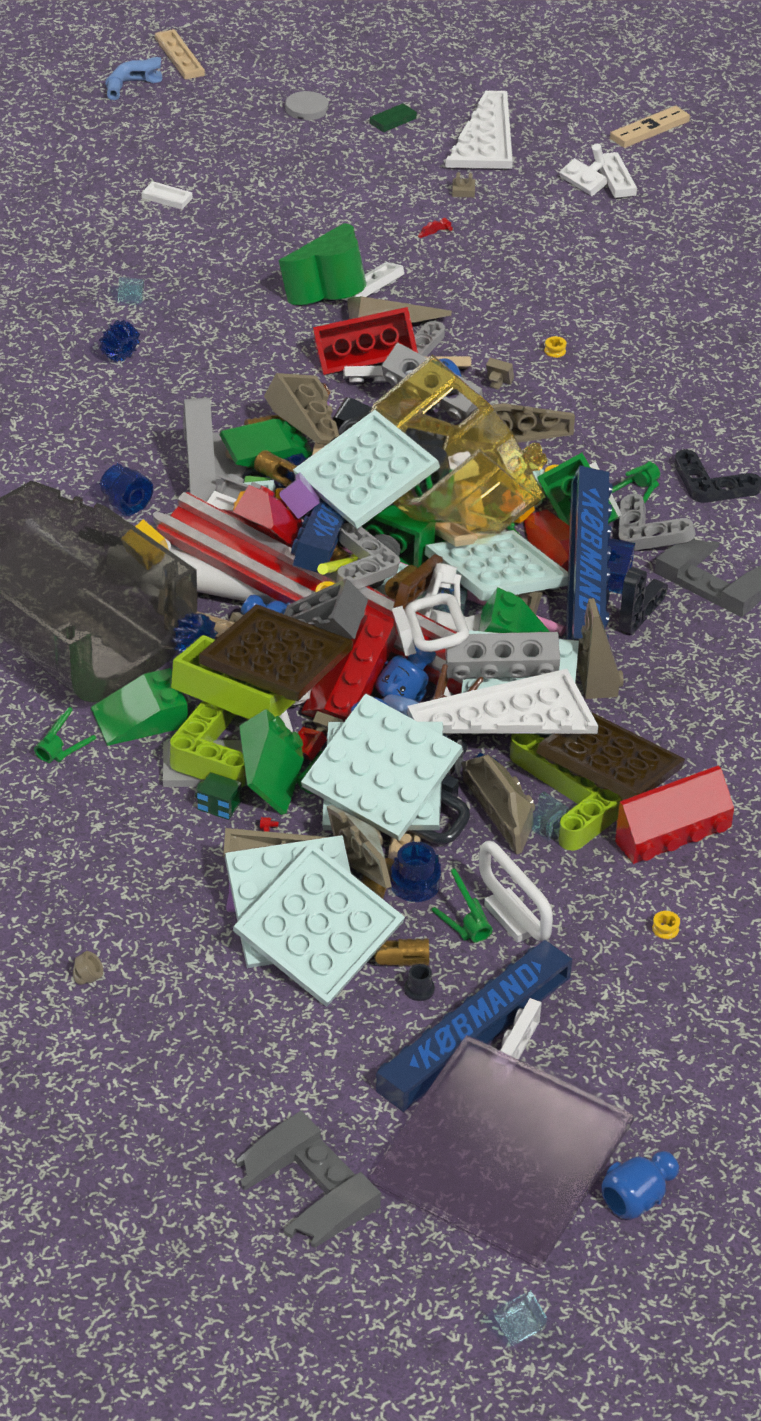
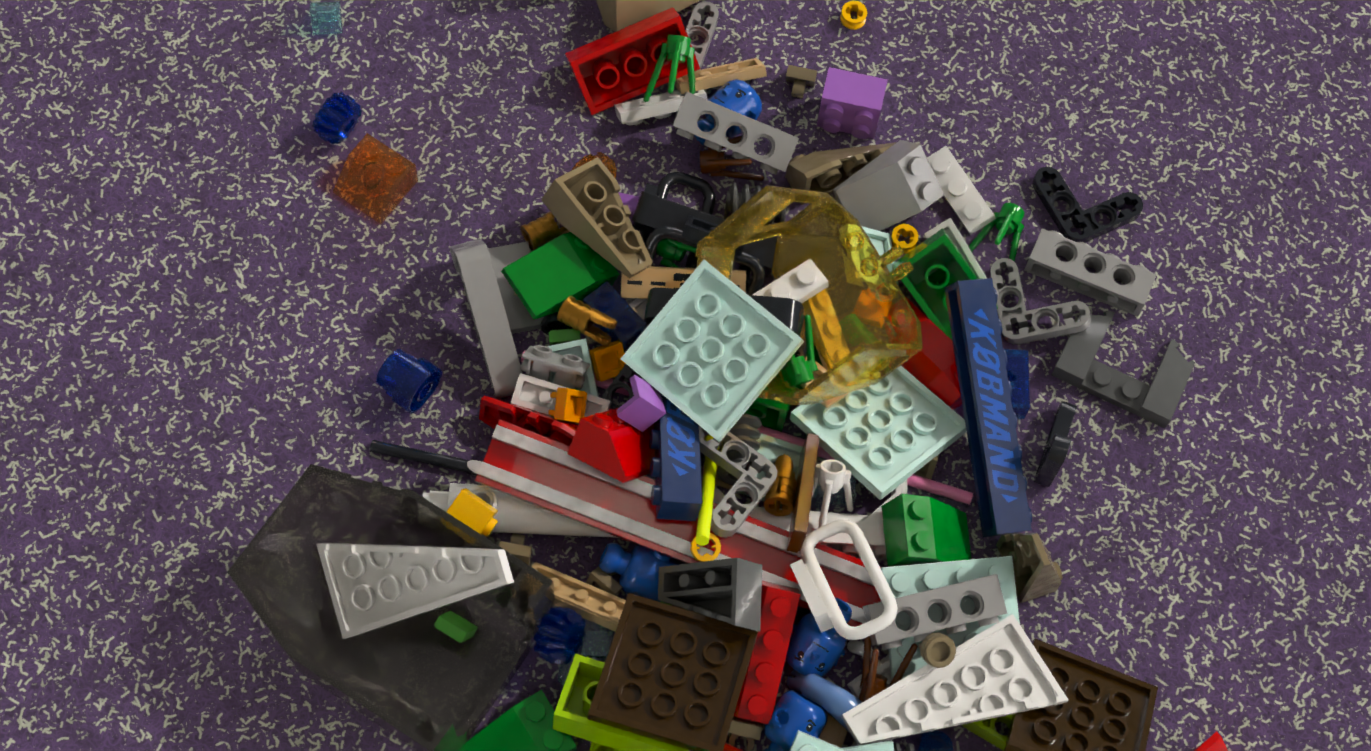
camera: 15 degrees left, 25 degrees up
(77, 573) = (396, 582): none -> white wing
(114, 625) = (455, 626): none -> bright green tile
(139, 380) = (375, 178): none -> clear orange slope
(399, 331) = (677, 50): none -> green plant
(496, 674) = (937, 650): none -> dark tan tile
(534, 382) = (851, 103): none -> medium lavender brick
(558, 430) = (890, 187): none -> light grey slope
(609, 453) = (960, 191): none -> white plate
(708, 513) = (1096, 285): none -> light grey brick

